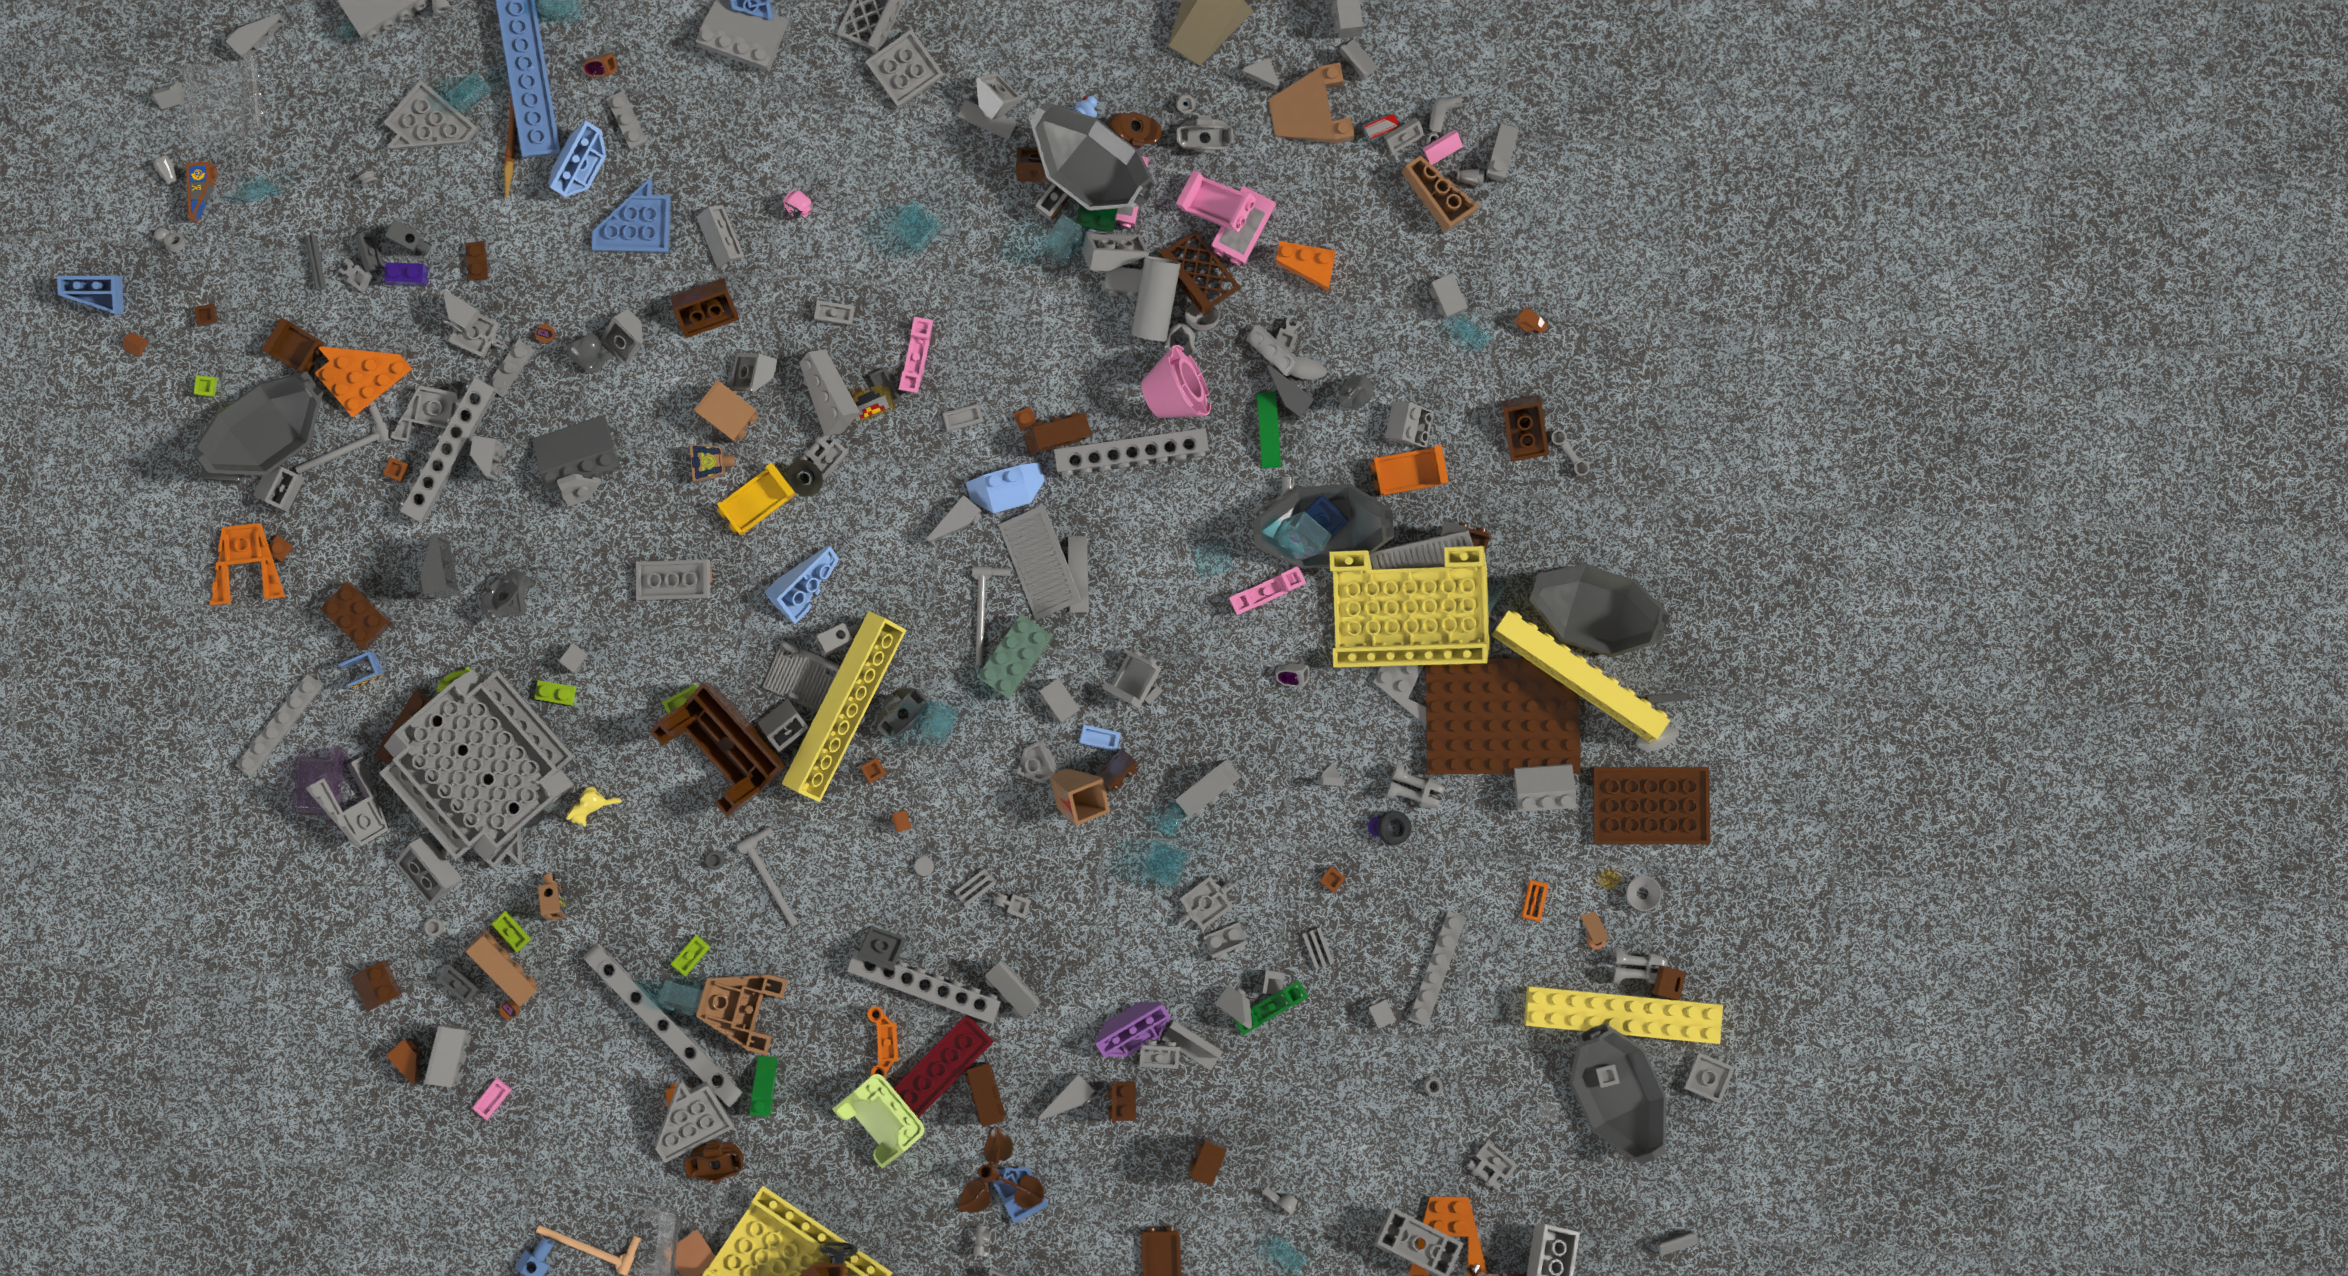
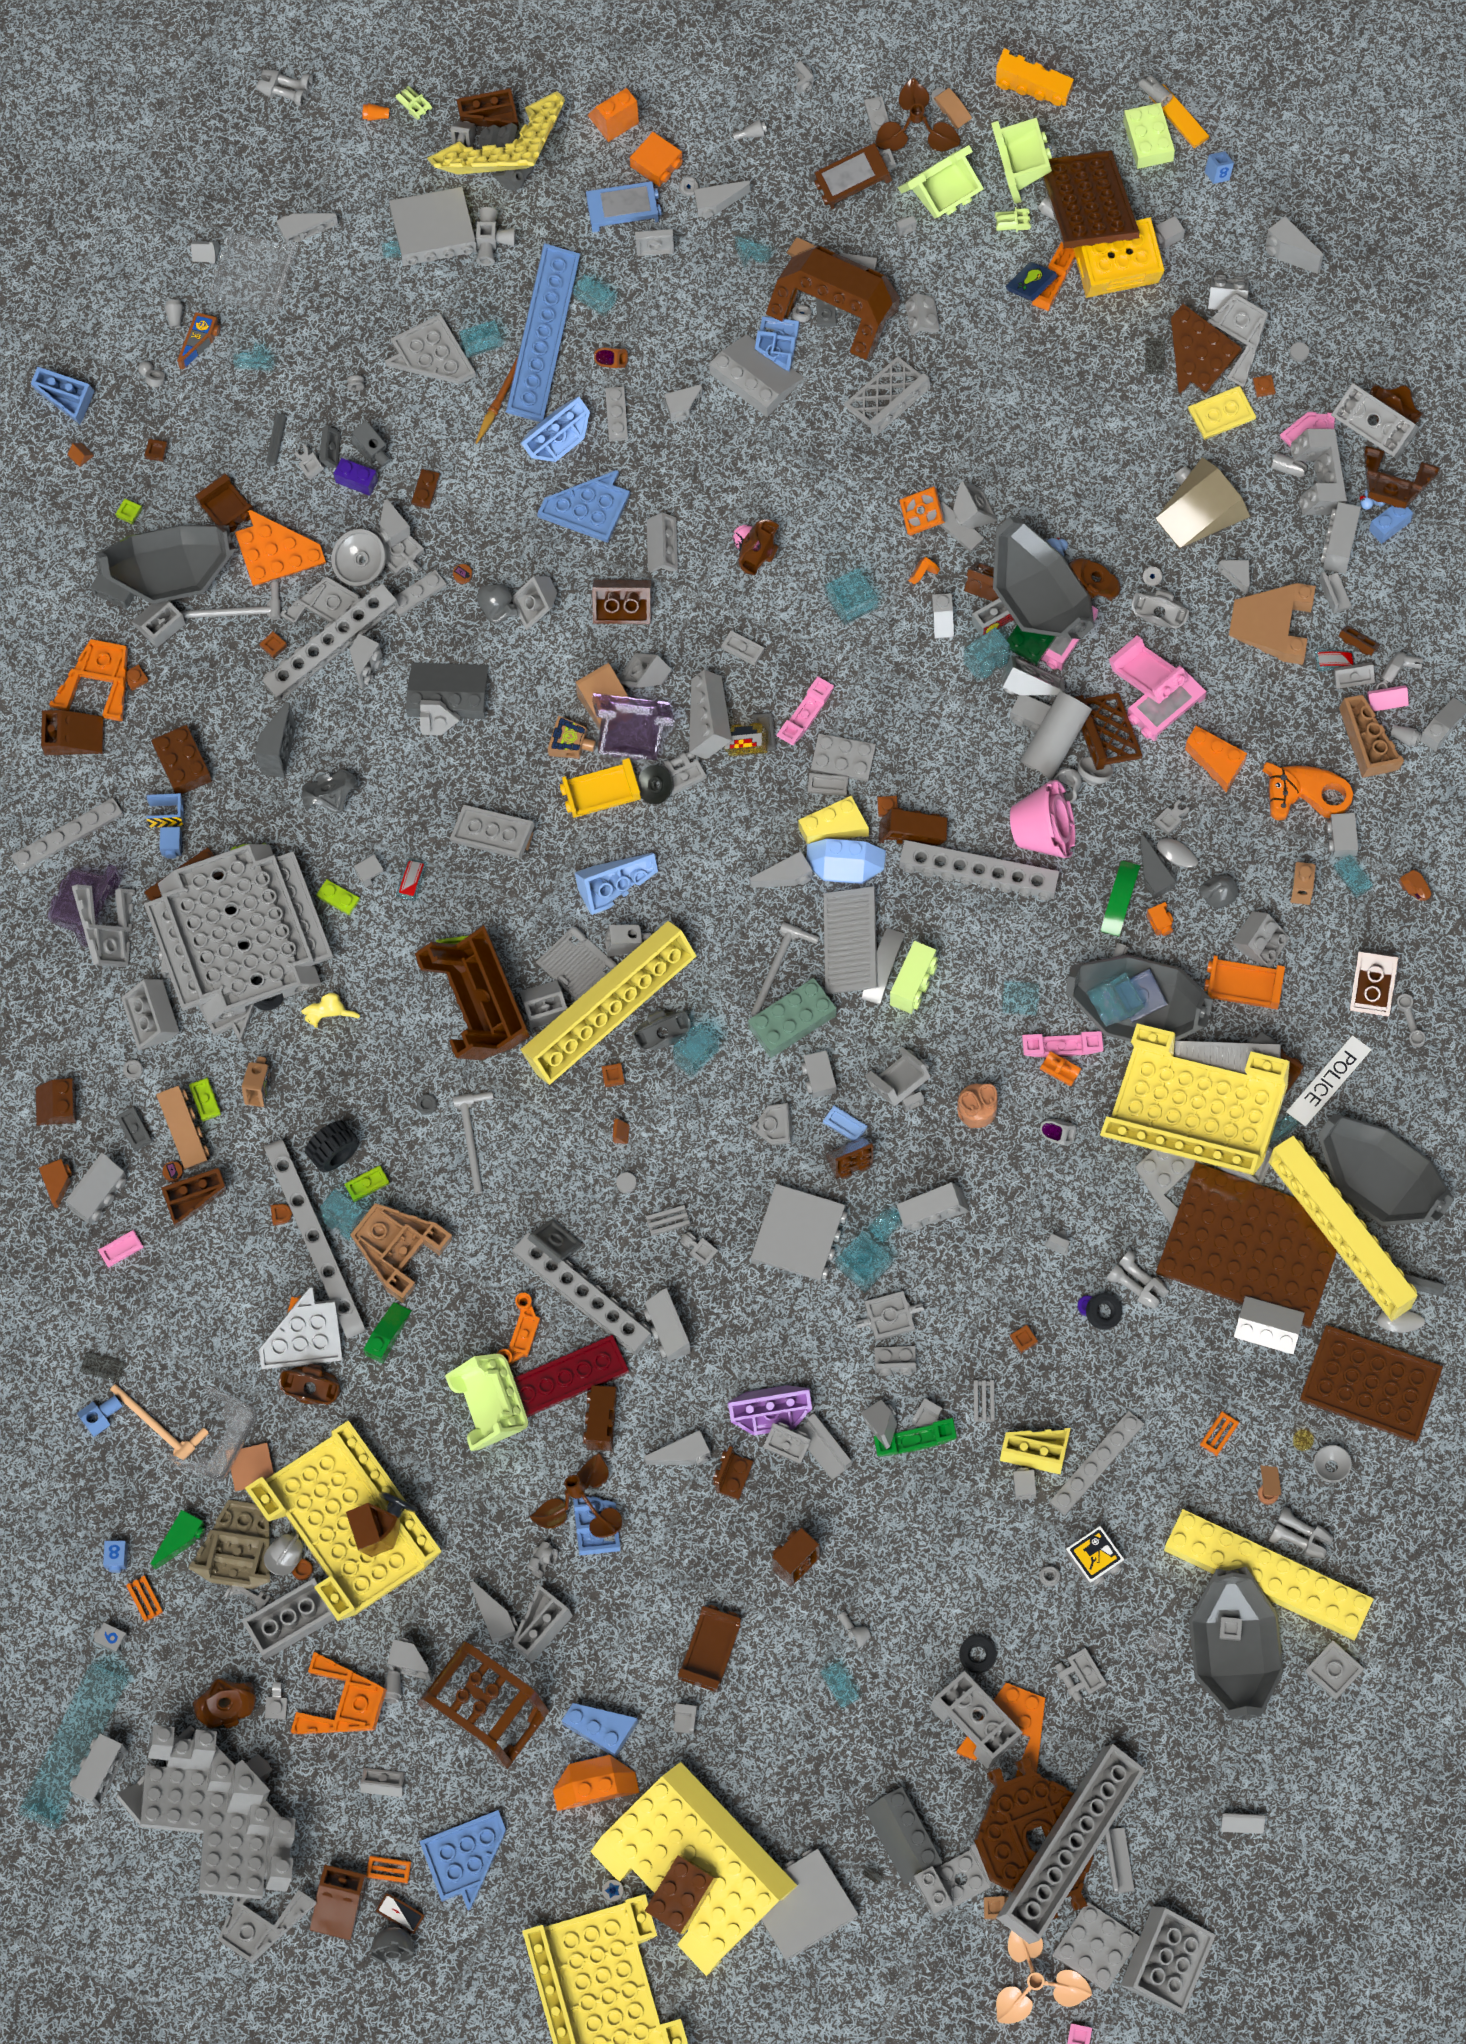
camera: 25 degrees right, 15 degrees down
(242, 626) = (71, 733): none -> reddish brown slope
(379, 698) = (171, 842): none -> medium blue brick
(431, 357) = (349, 553): none -> light grey dish
(520, 1214) = (102, 1367): none -> clear smoke tile
(536, 1027) = (192, 1194): none -> reddish brown wedge
(616, 651) = (411, 879): none -> slope
(623, 1012) = (280, 1214): none -> dark orange tile
(645, 937) = (332, 1146): none -> black tyre
(685, 87) = (682, 402): none -> light grey slope
(761, 430) = (631, 725): none -> clear purple windscreen
(808, 223) = (764, 533): none -> reddish brown piece
(904, 68) = (896, 455): light grey plate -> none
(949, 116) = (922, 511): none -> orange piece
(967, 386) = (843, 757): none -> light grey plate
(970, 174) = (923, 565): none -> orange tile
(983, 454) = (836, 821): none -> light yellow wedge
(1007, 214) = (942, 615): none -> slope
(1079, 795) = (804, 1163): medium nougat slope -> none
(1098, 858) = (799, 1233): none -> light grey panel
(1111, 579) = (913, 977): none -> yellowish green brick
(1212, 678) = (977, 1105): none -> nougat piece
(1272, 350) = (1151, 824): light grey plate -> none
(1274, 615) = (1060, 1068): none -> orange hips
(1313, 439) = (1160, 920): none -> orange brick
(1382, 978) = (1036, 1449): none -> light yellow wedge
(1384, 1180) = (968, 1663): none -> black tyre
(1397, 99) = (1363, 643): none -> reddish brown plate
(1397, 257) = (1304, 782): none -> orange animal
(1428, 357) = (1302, 881): none -> medium nougat torso
(1467, 1056) = (1095, 1557): none -> piece
(1517, 537) = (1328, 1080): none -> white sticker
(1669, 982) = (1324, 1557): reddish brown piece -> none

